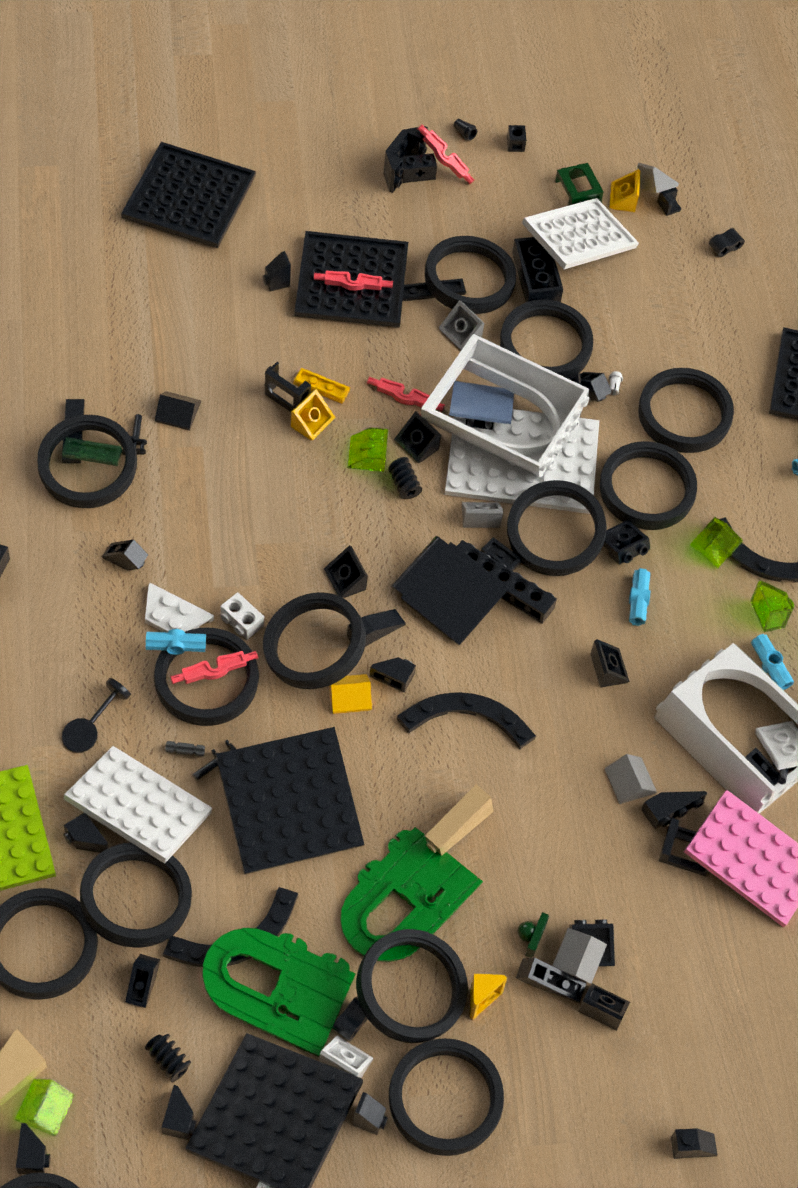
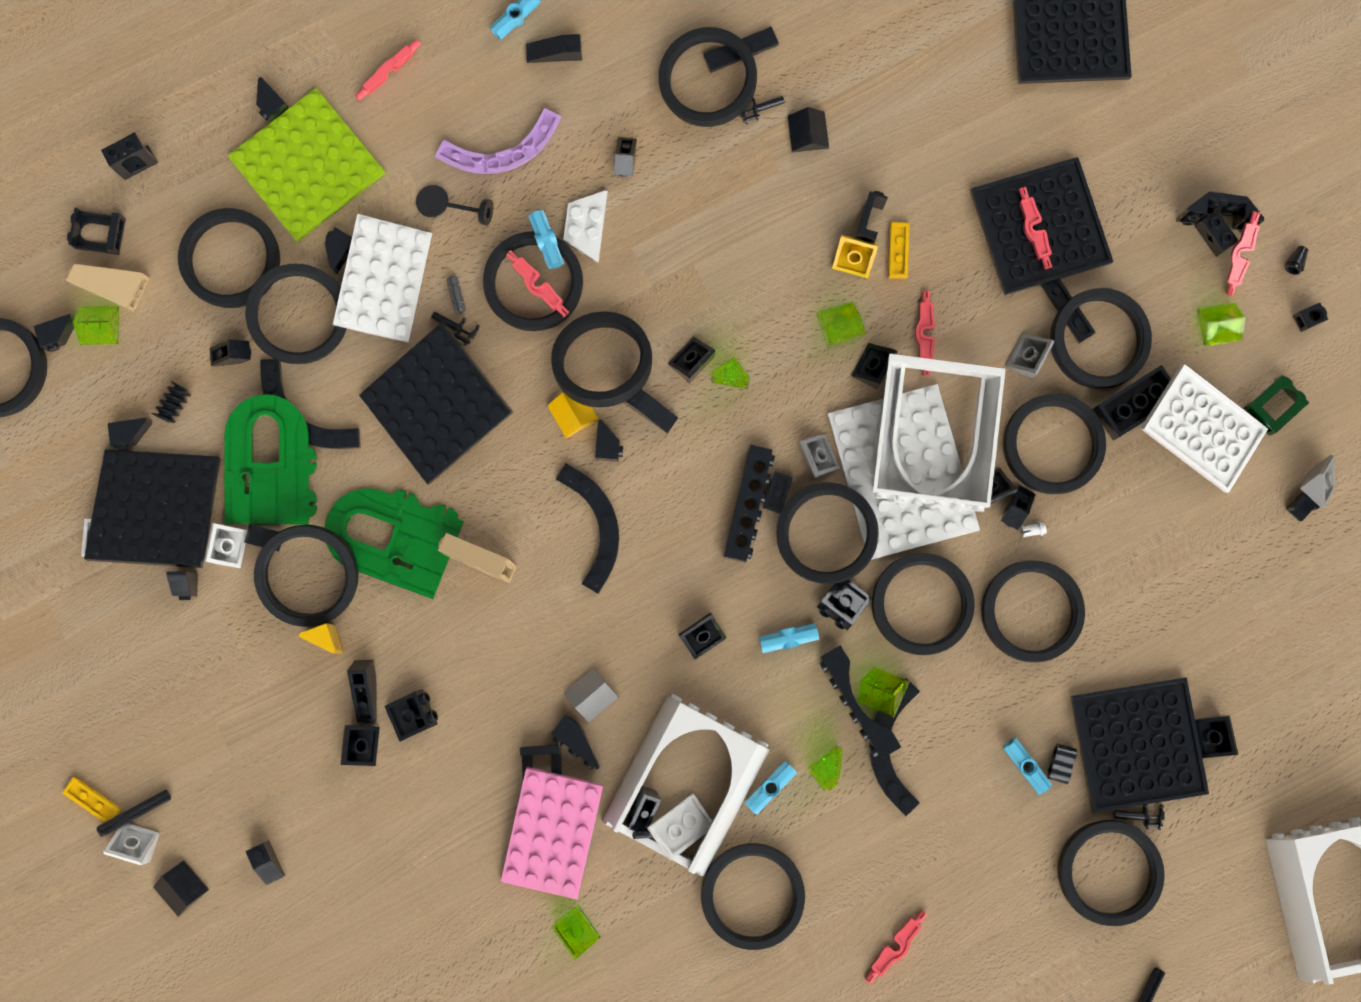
camera: 75 degrees right, 25 degrees up
(73, 658) = (506, 159): none -> lavender plate
(92, 451) = (712, 76): clear green plate -> none
(244, 614) = (610, 286): white brick -> none
(278, 273) = (1008, 152): black slope -> none
(378, 543) = (731, 374): none -> clear neon green slope
(404, 478) = (822, 369): black piece -> none
(449, 589) = (714, 458): black piece -> none
(481, 404) = (941, 409): sand blue piece -> none
(481, 1062) = (184, 627): black tyre -> none
(494, 195) = (1221, 324): none -> clear neon green slope
(531, 933) = (401, 657): dark green tile -> none
(579, 955) = (390, 707): light grey slope -> none
(625, 192) = (1291, 455): yellow slope -> none
(682, 568) = (881, 739): none -> black arch
(726, 242) = (1275, 583): black axle -> none

